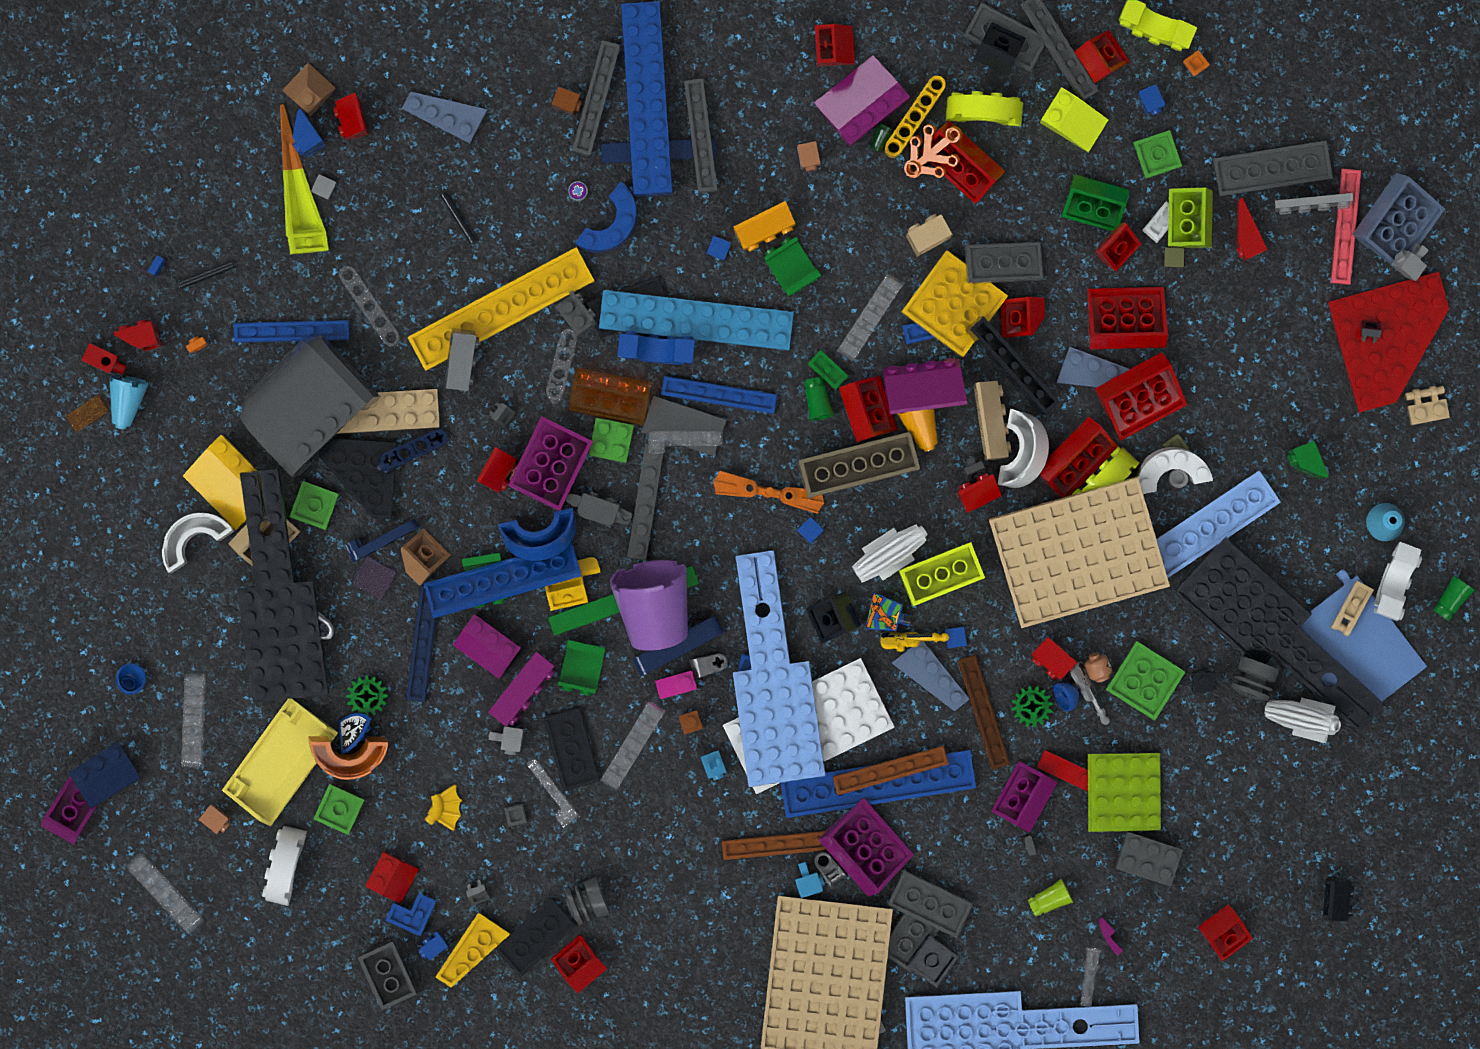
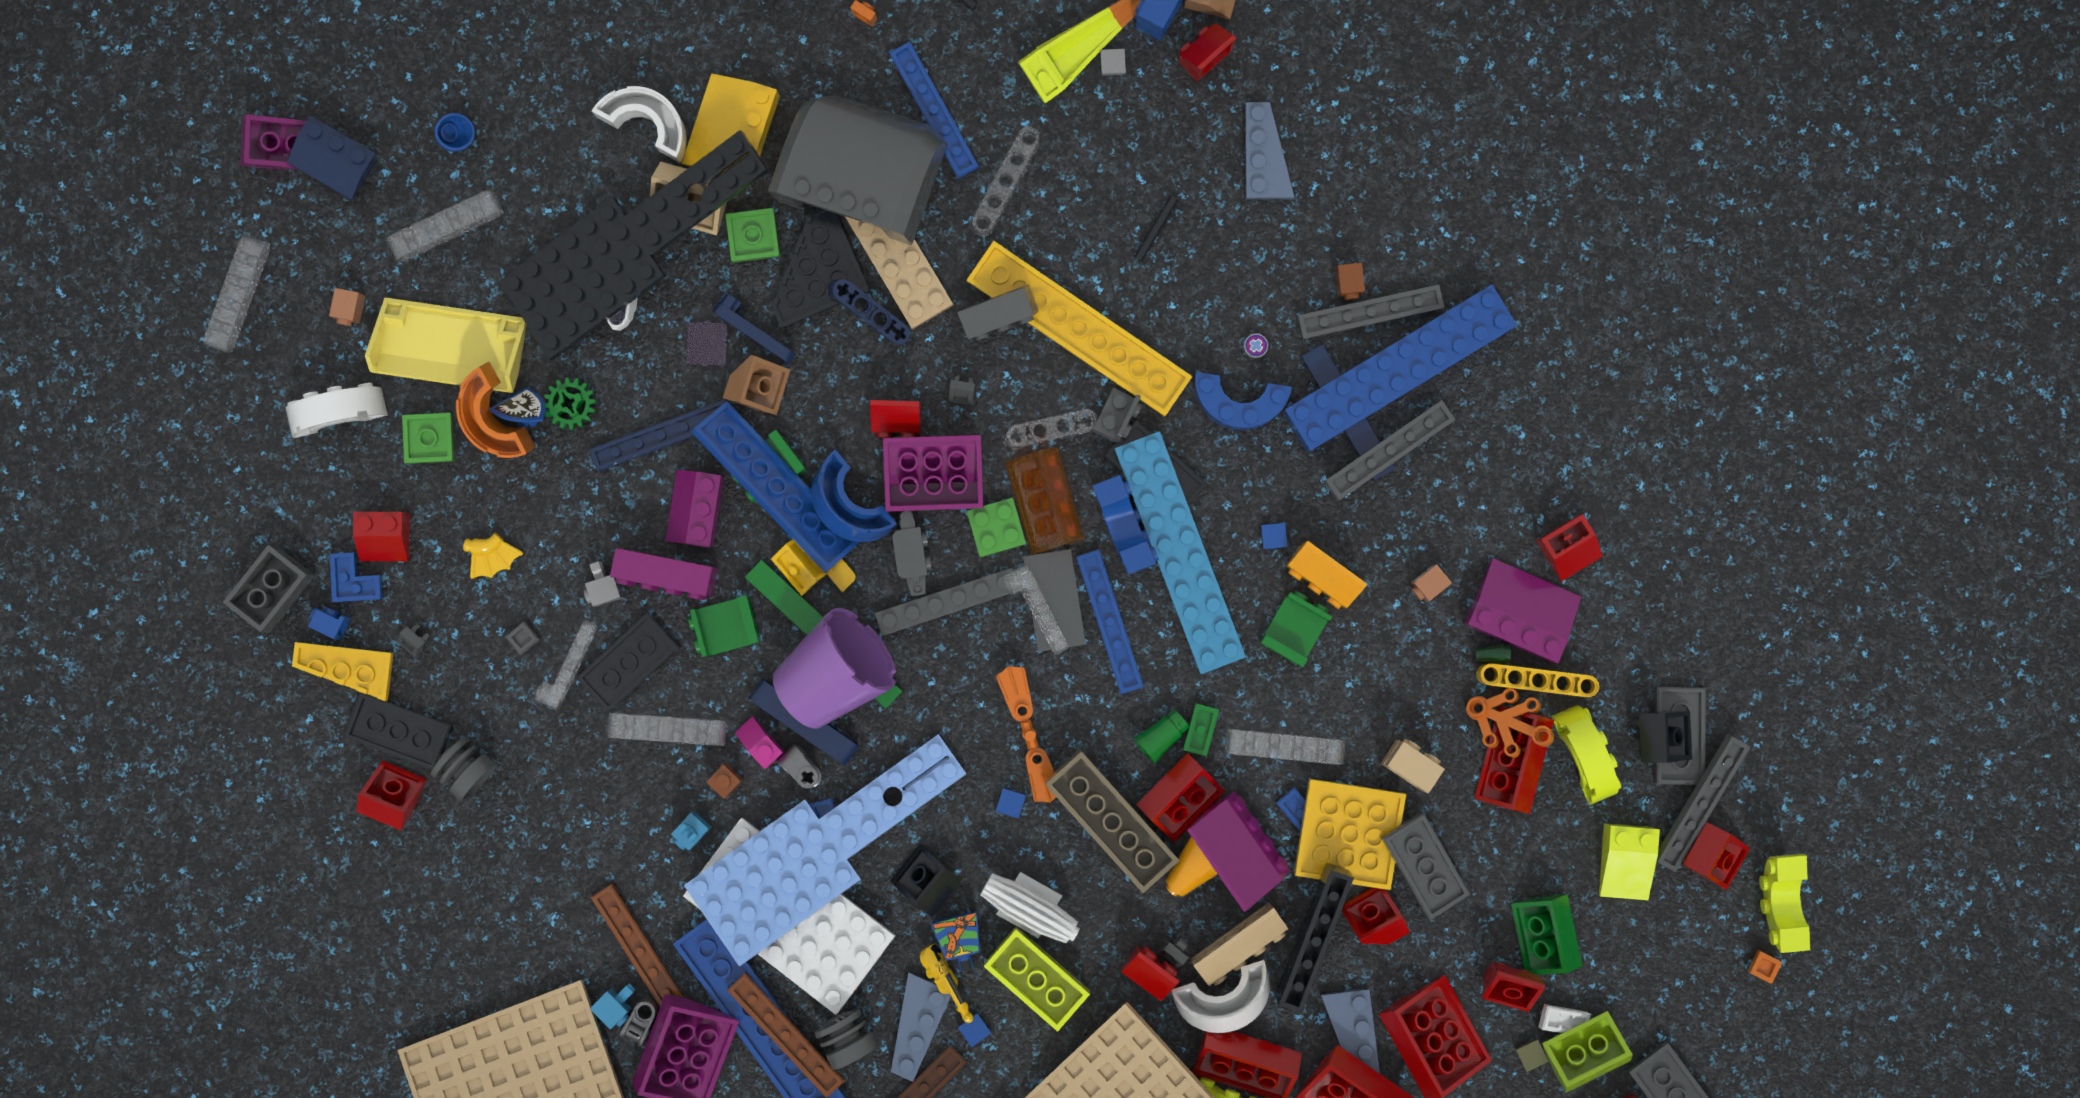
camera: 65 degrees right, 0 degrees up
(914, 729) = (844, 1036): none -> dark grey wheel
(1151, 100) = (1696, 938): blue brick -> none
(1157, 154) = (1638, 976): bright green plate -> none

